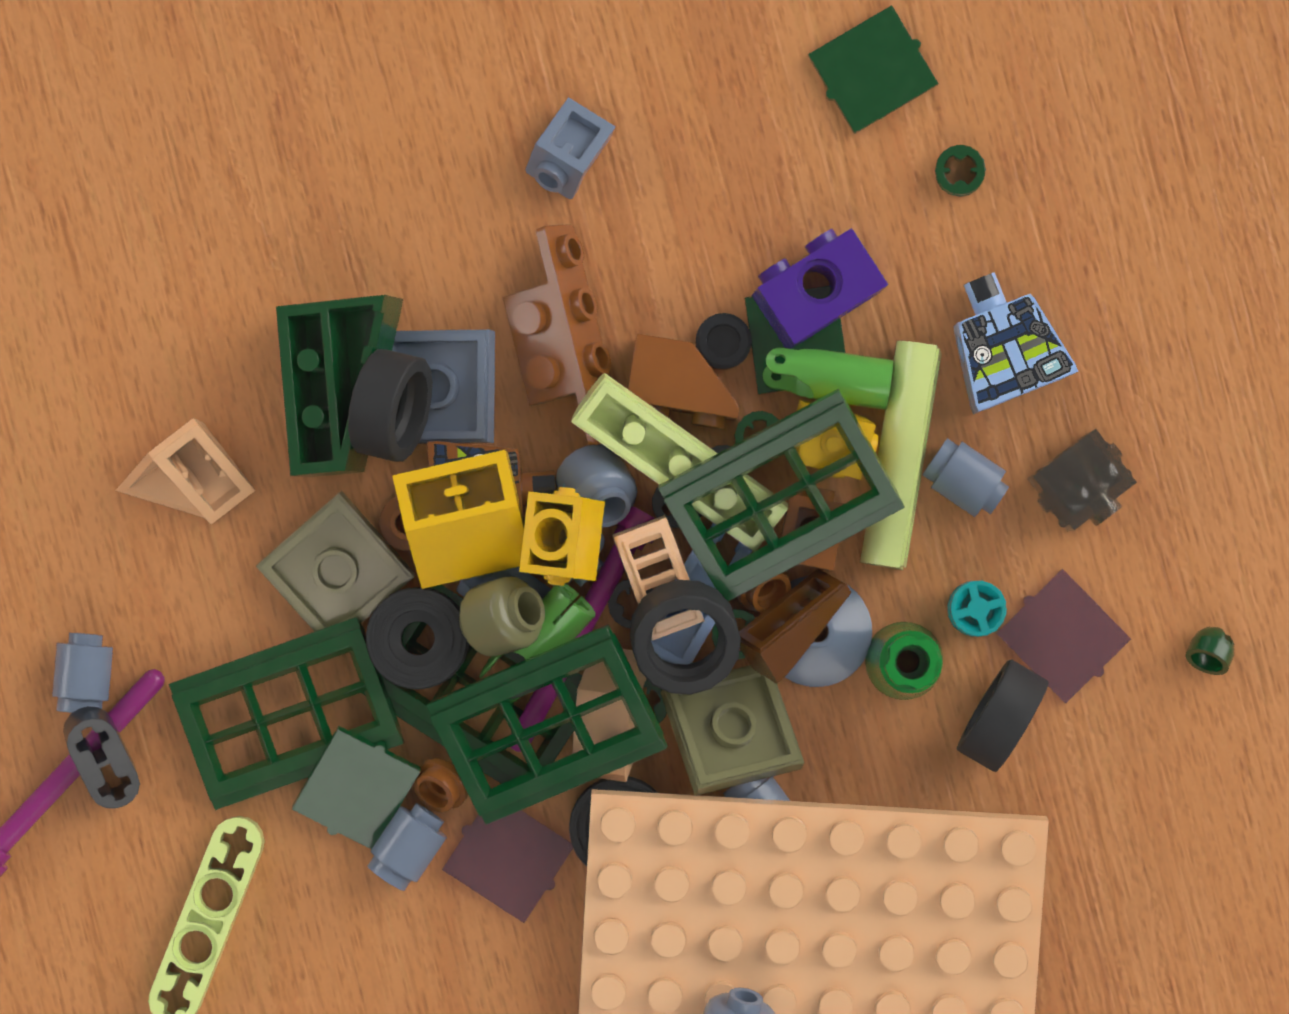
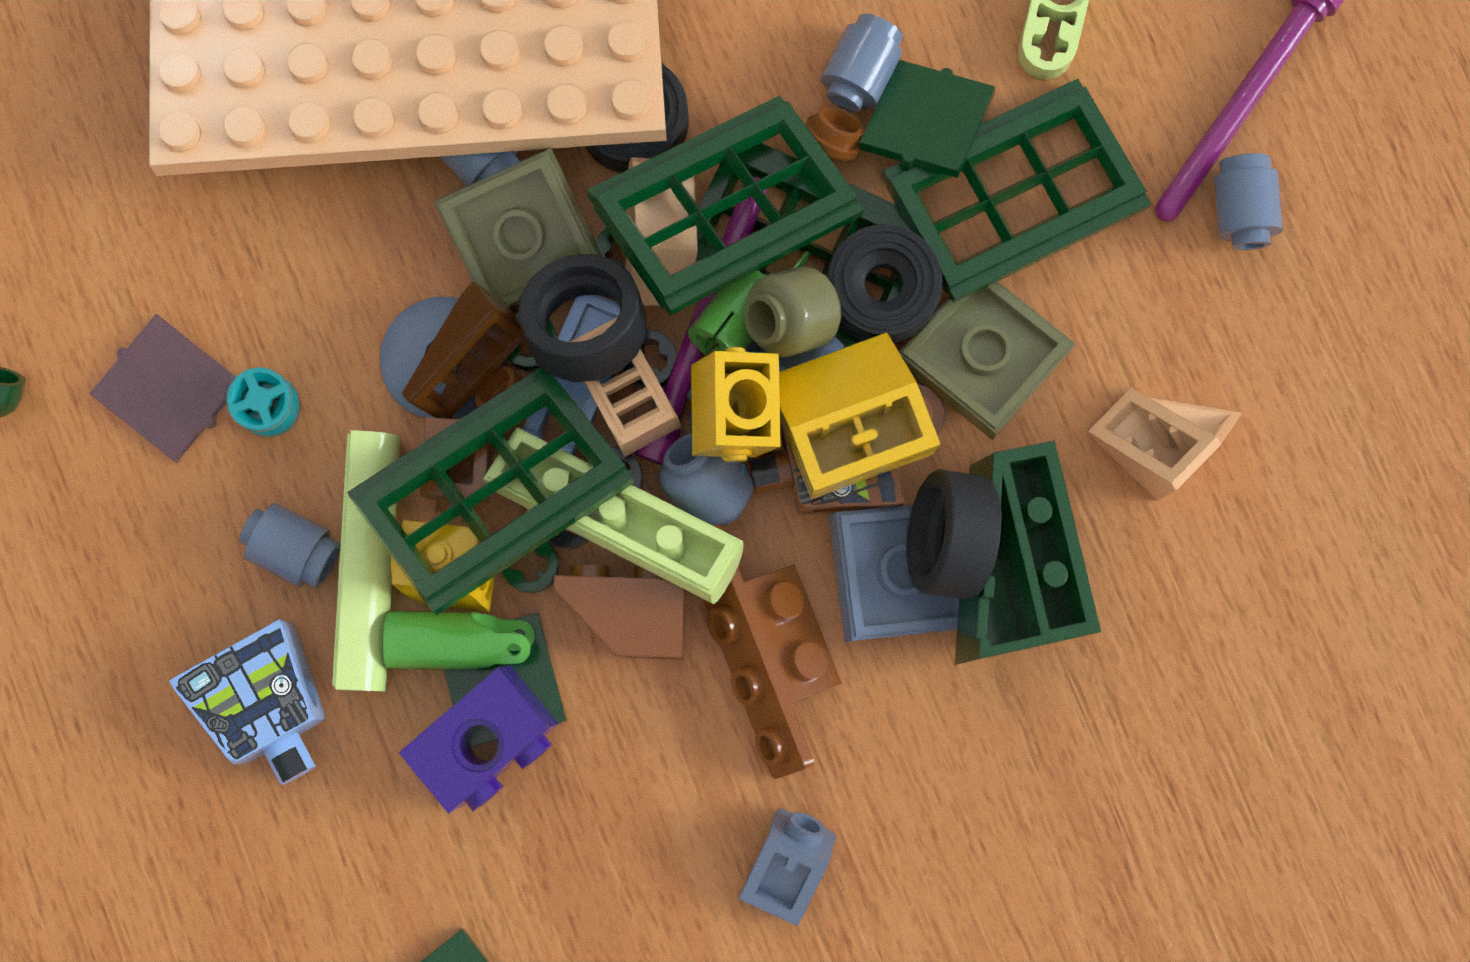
camera: 170 degrees right, 5 degrees down
(90, 762) = (1223, 104): black beam -> none
(509, 861) = (748, 65): piece -> none
(723, 341) = (584, 667): black tile -> none
(883, 655) = (349, 346): green plant -> none
(959, 153) = (332, 881): dark green bush -> none
(1002, 715) = (217, 281): black tyre -> none
(1083, 482) = (156, 559): clear smoke head -> none

